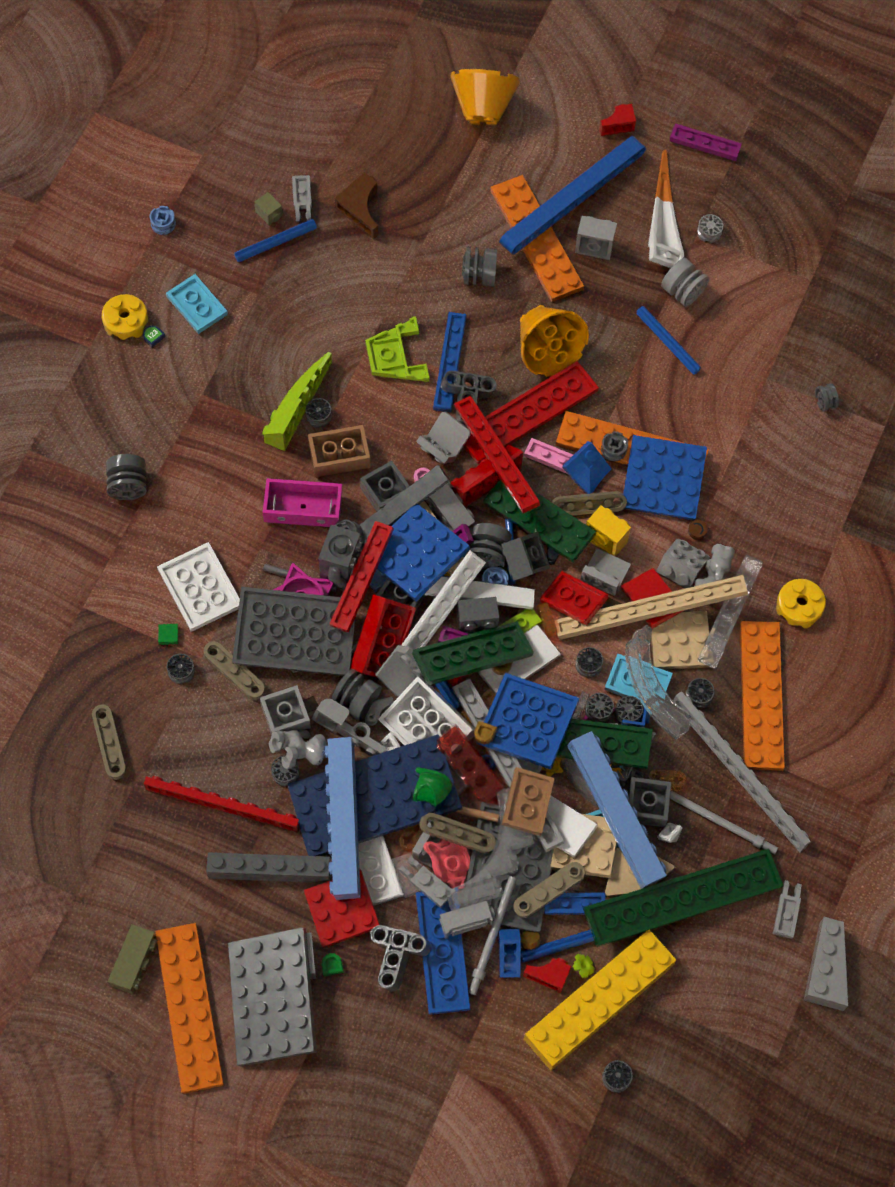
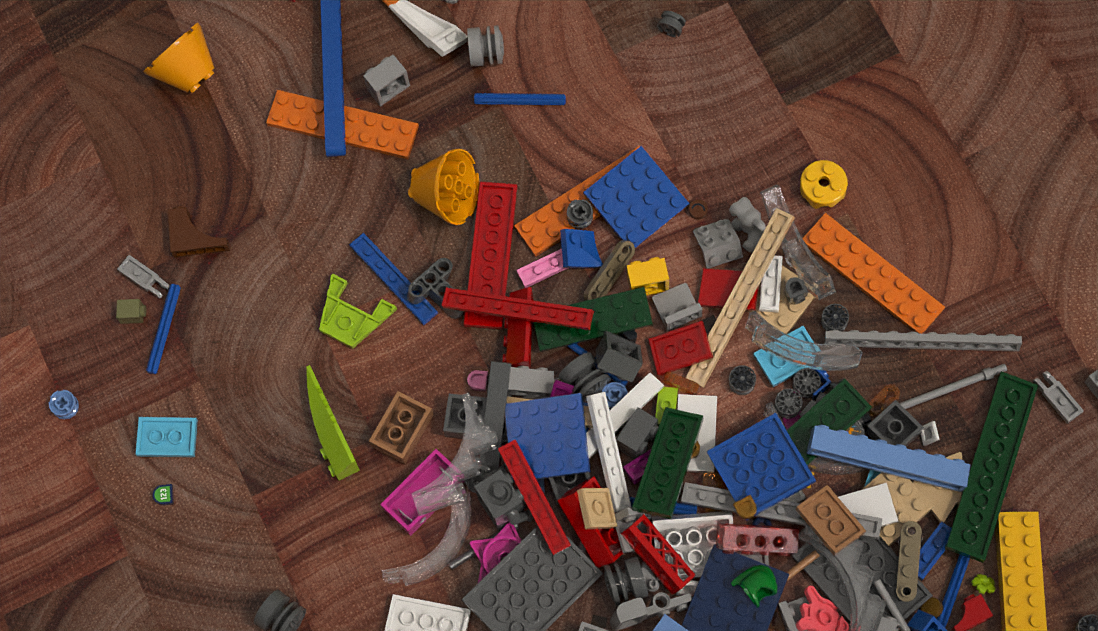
camera: 40 degrees left, 5 degrees up
(124, 327) = (133, 516): yellow plate -> none
(272, 553) = (443, 554): none -> clear arch
(318, 413) = (351, 417): dark grey wheel -> none
(346, 511) = (446, 489): none -> clear arch
(389, 697) = (656, 562): none -> red fence
(391, 627) = (597, 508): none -> tan tile
(445, 438) = (461, 336): light grey bracket -> none
(457, 833) = (808, 594): dark tan plate -> none
(480, 266) = (330, 191): dark grey wheel -> none
(683, 624) = (771, 286): none -> white tile
(693, 644) = (795, 290): none -> dark grey plate

